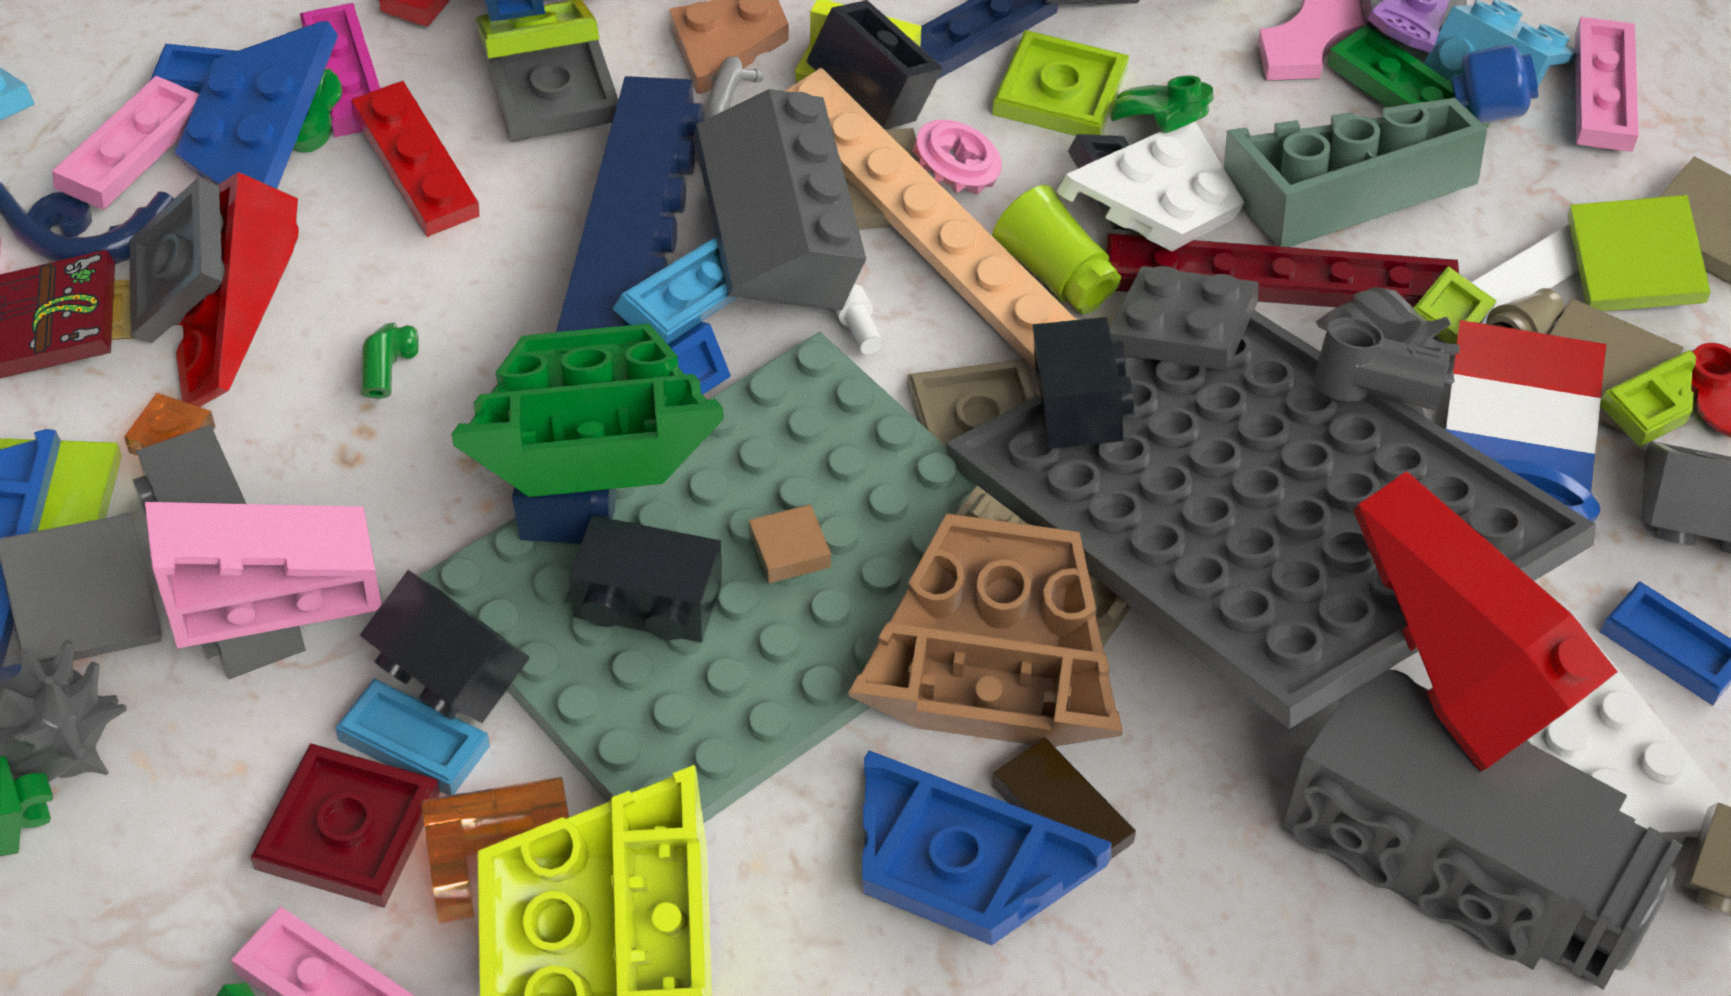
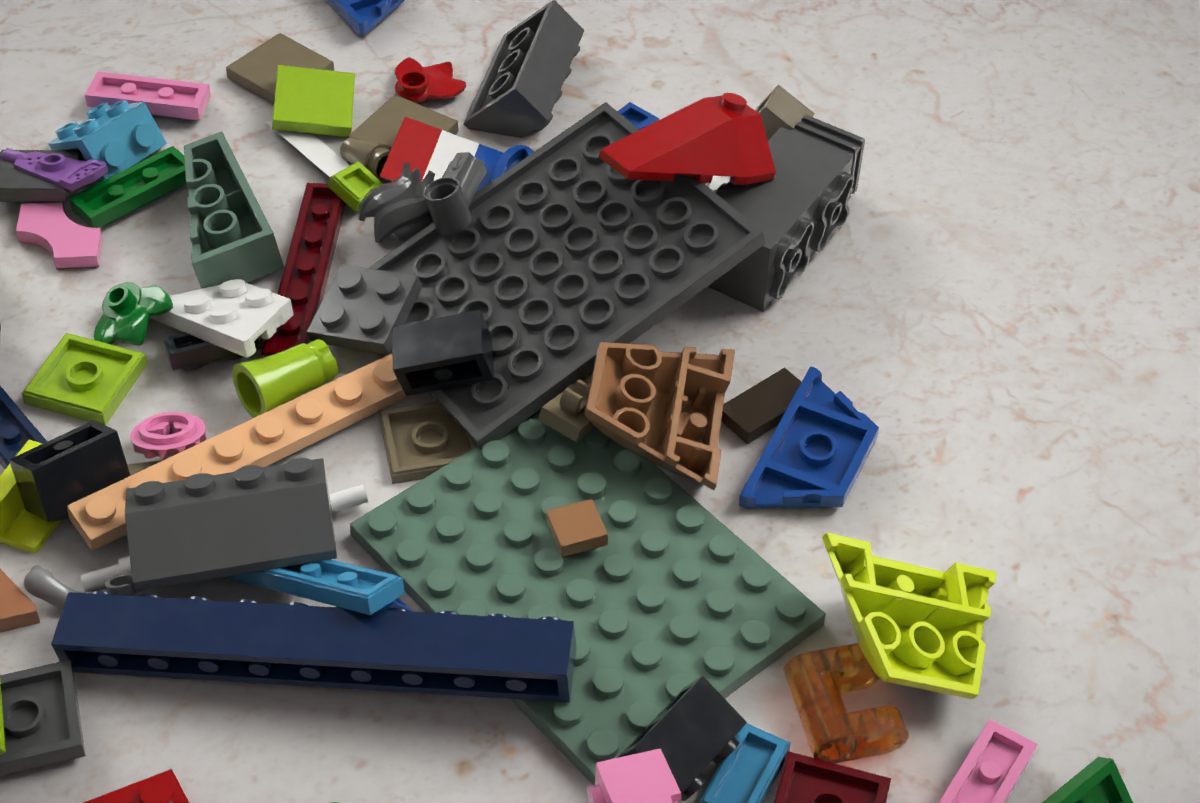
camera: 90 degrees left, 5 degrees down
(588, 413) = (492, 604): green wedge -> none
(646, 579) = (623, 604): black brick -> none
(1496, 83) = (165, 129): blue head -> none
(1653, 400) = (444, 109): lime tile -> none

